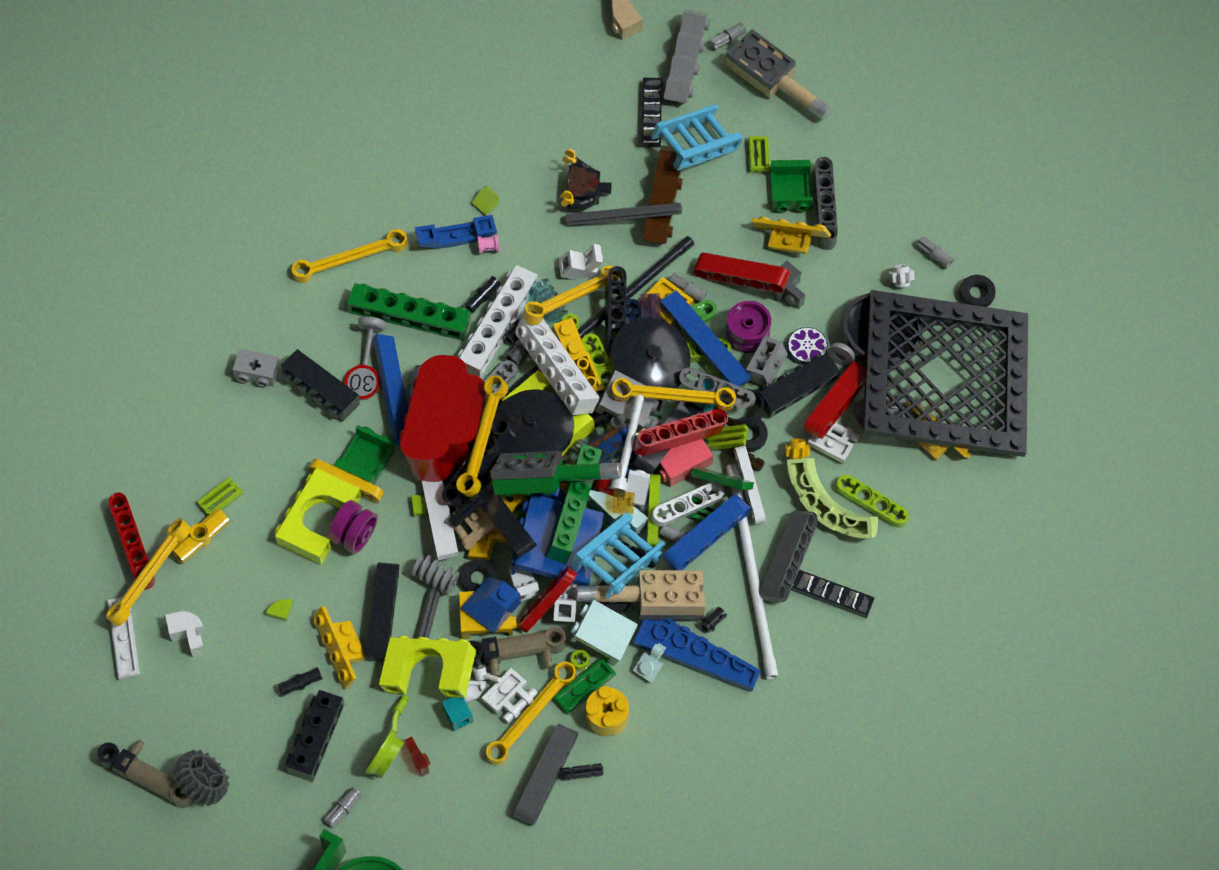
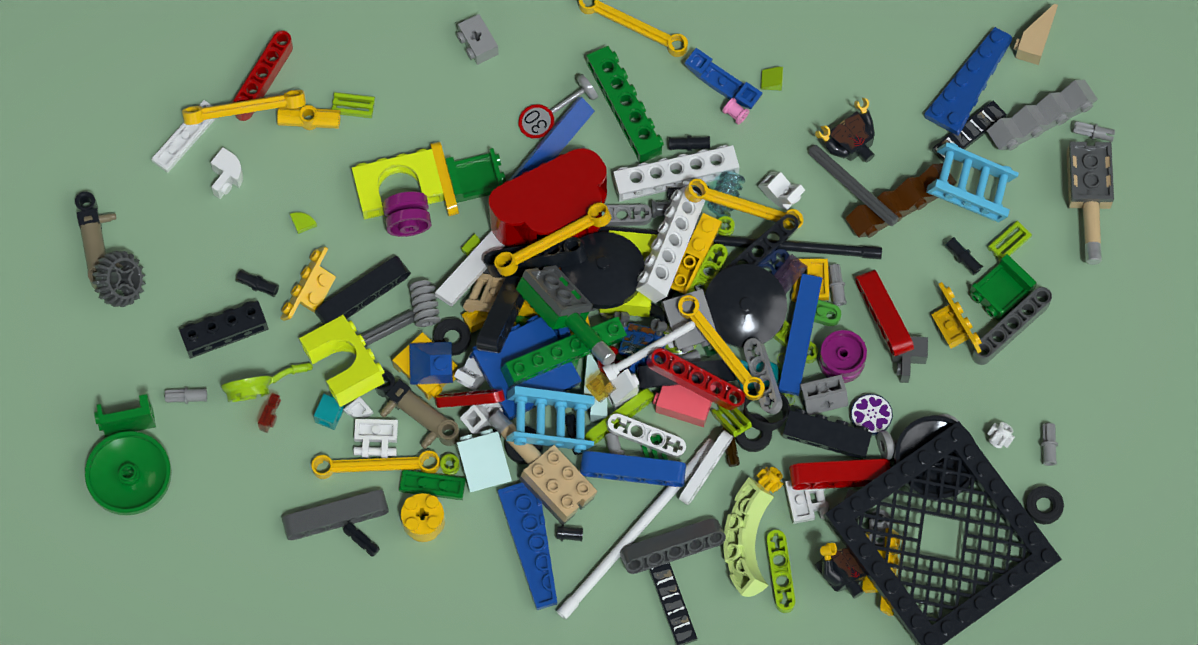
camera: 50 degrees right, 5 degrees up
(320, 385) = (503, 94): black brick -> none
(466, 510) = (488, 280): black axle -> none
(481, 674) = (375, 404): white hand -> none
(619, 93) = (962, 93): none -> blue wing
(649, 664) = (489, 516): light aqua plate -> none
(722, 479) = (689, 443): green tile -> none
(743, 190) = (963, 256): none -> black pin
(914, 456) = (841, 569): none -> torso

